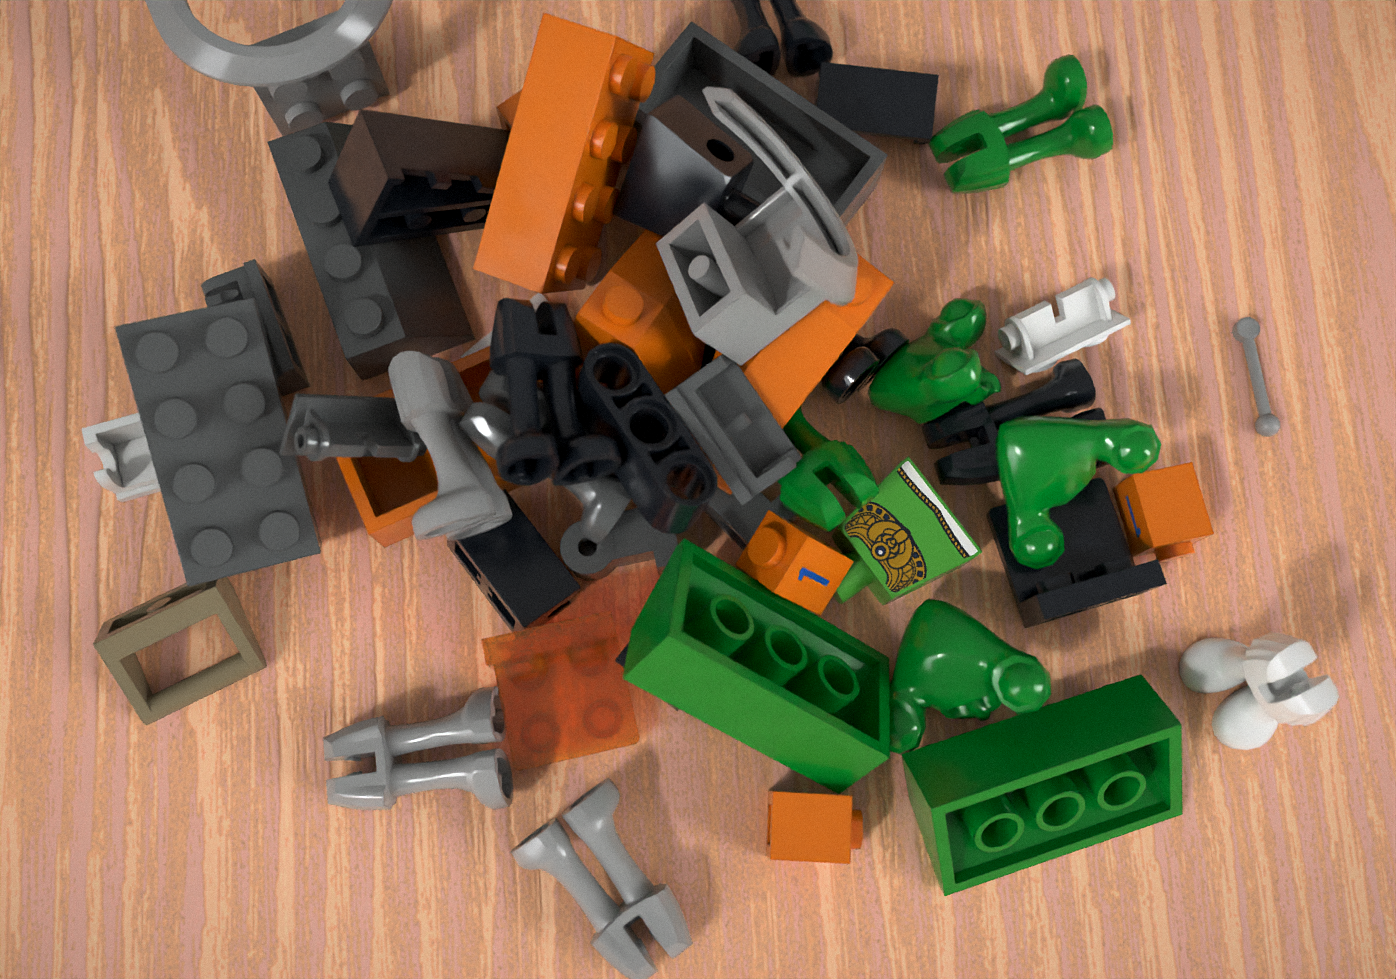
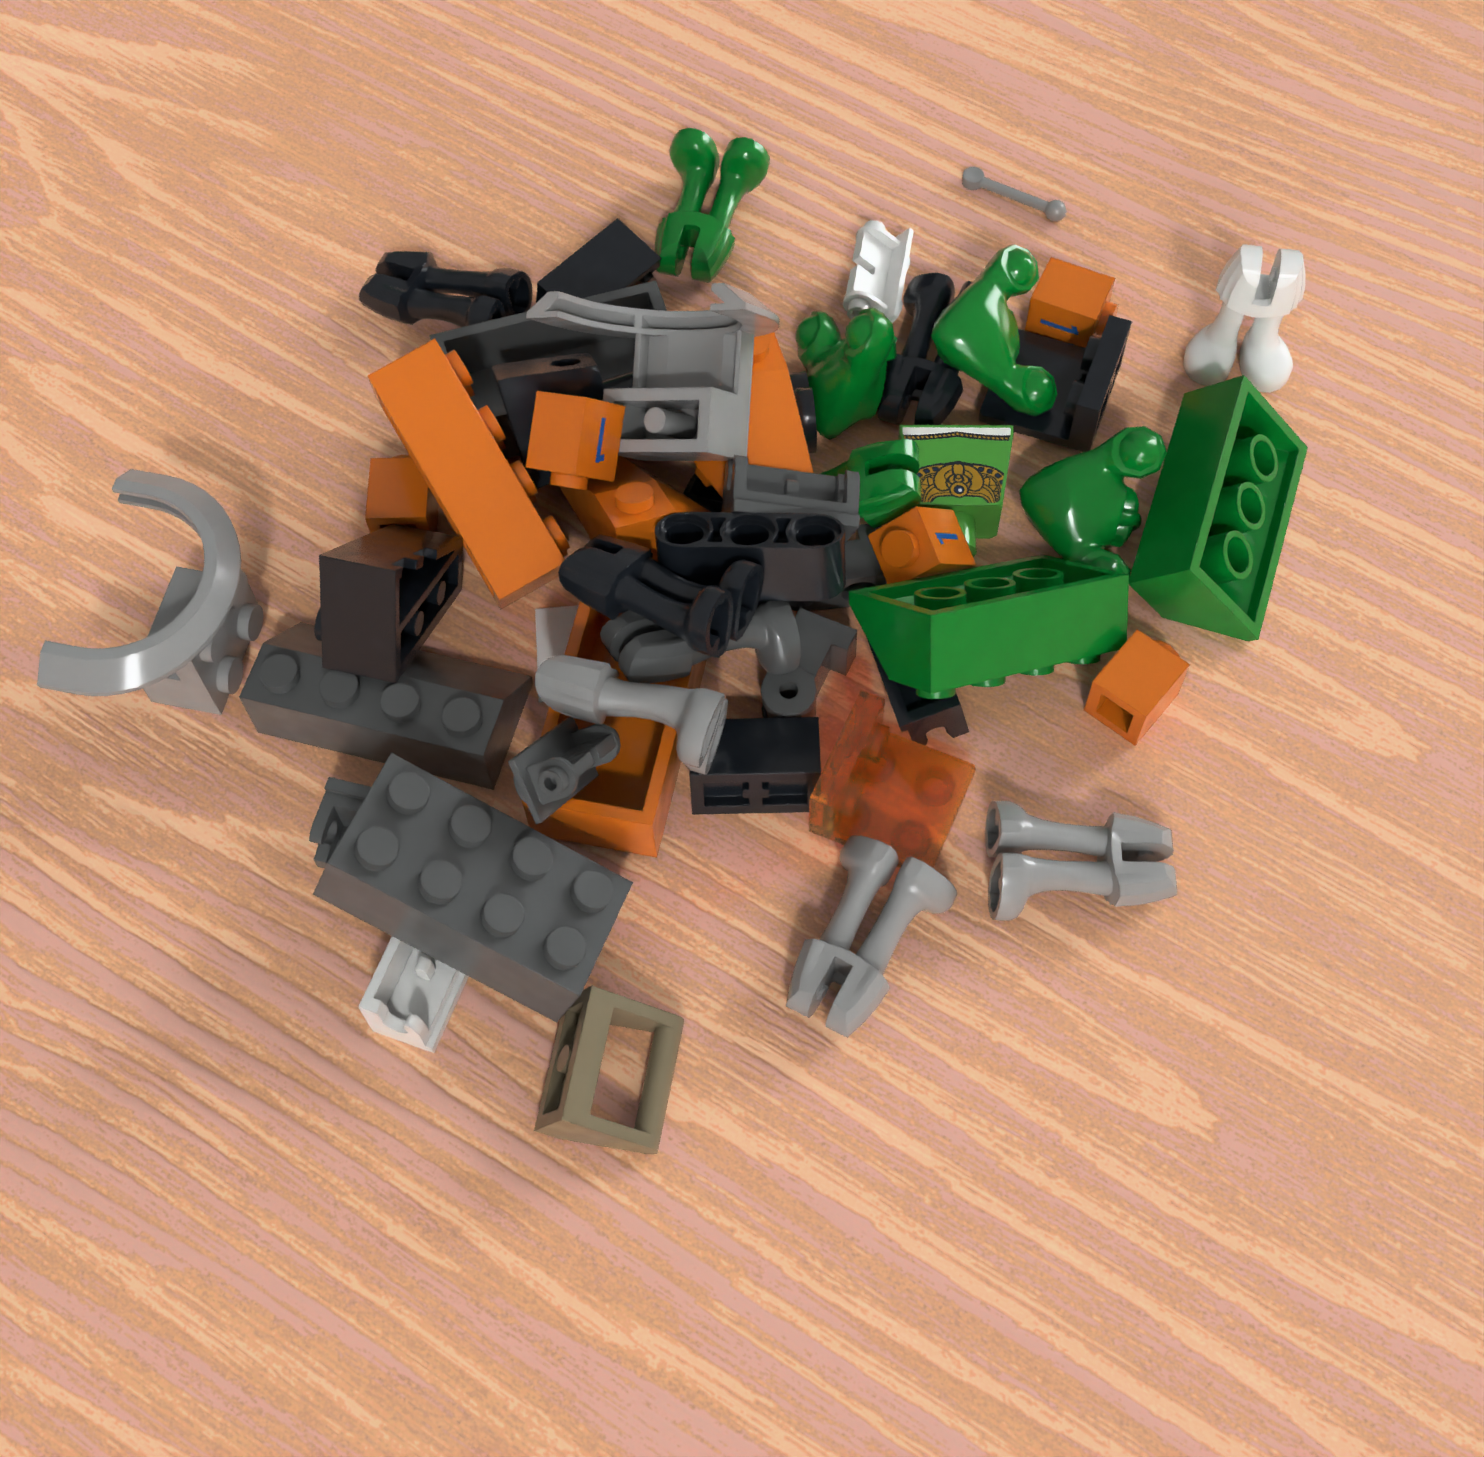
camera: 45 degrees left, 15 degrees down
(640, 215) = (575, 438): none -> orange brick

